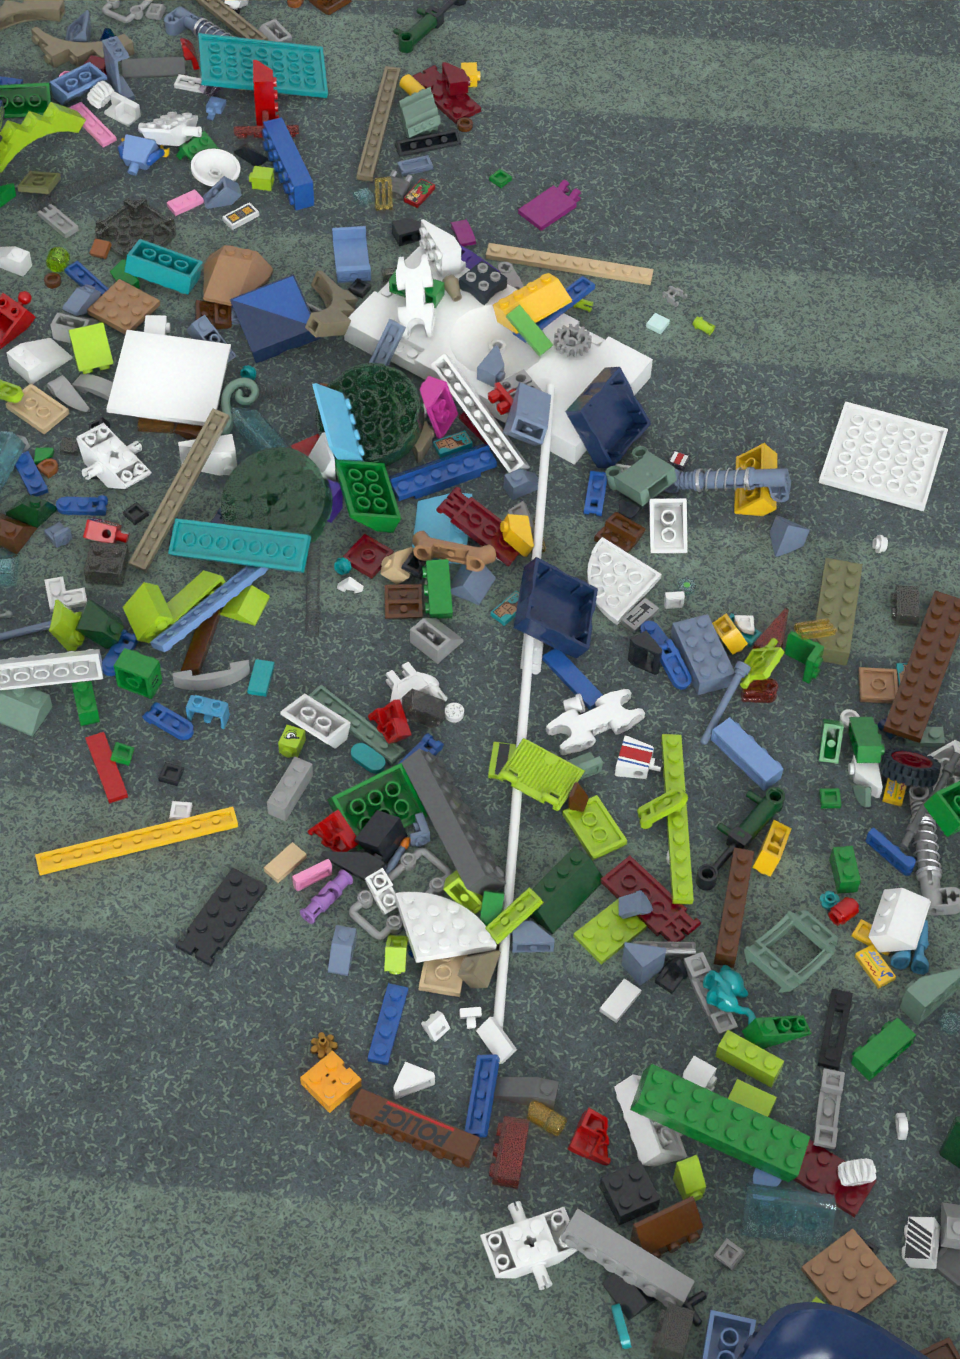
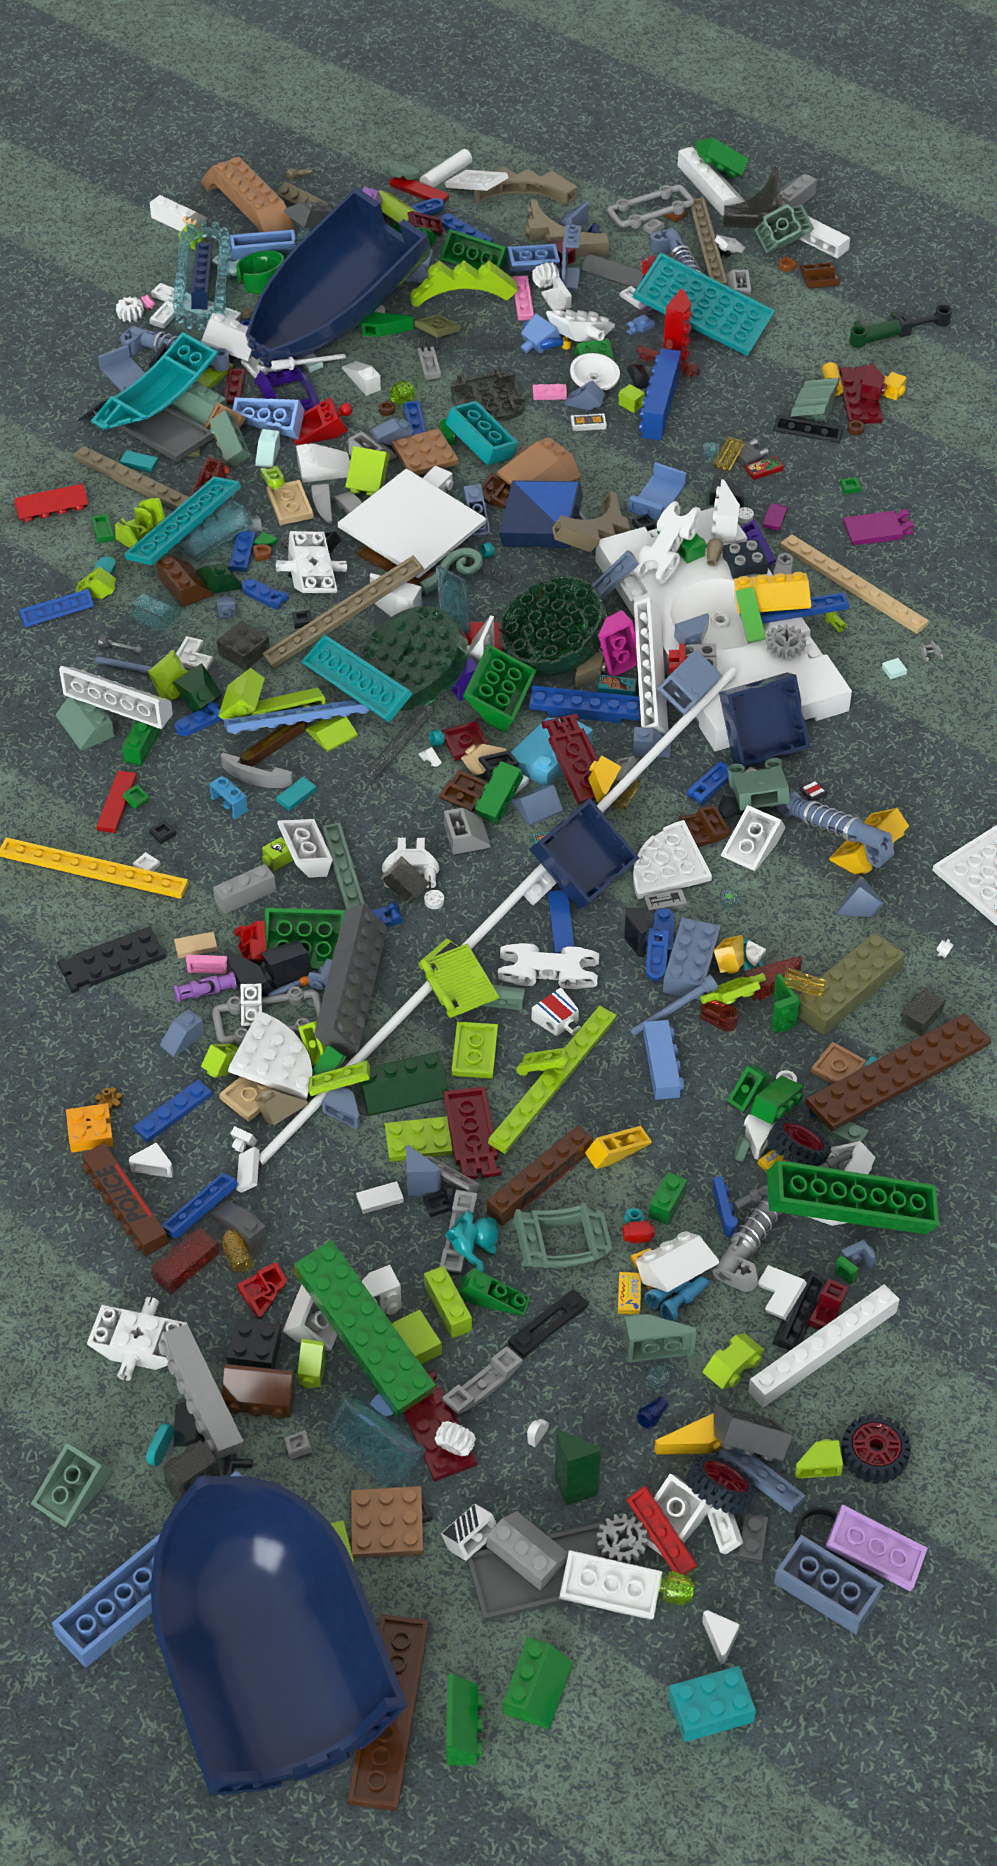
camera: 35 degrees right, 5 degrees down
(97, 530) = (259, 618): torso -> none
(100, 248) = (445, 399): dark orange tile -> none
(138, 673) = (195, 739): green brick -> none
(169, 722) = (193, 791): blue plate -> none
(338, 423) = (510, 614): medium azure slope -> none
(368, 758) = (330, 897): teal tile -> none
(378, 124) = (775, 395): dark tan plate -> none
(391, 722) = (369, 878): red slope -> none
(415, 165) = (780, 443): sand blue tile -> none
(435, 1026) = (208, 1132): white tile -> none
(474, 557) = (545, 778): medium nougat plate -> none
(575, 703) = (544, 943): white piece -> none
(578, 798) = (475, 1016): reddish brown slope -> none
(634, 905) = (451, 1124): sand blue tile -> none
(674, 600) = (705, 902): white tile -> none
(703, 325) = (934, 686): lime pin -> none
(742, 835) = (599, 1123): piece -> none
(830, 798) = (709, 1136): green tile -> none
(882, 1048) = (574, 1361): green brick -> none

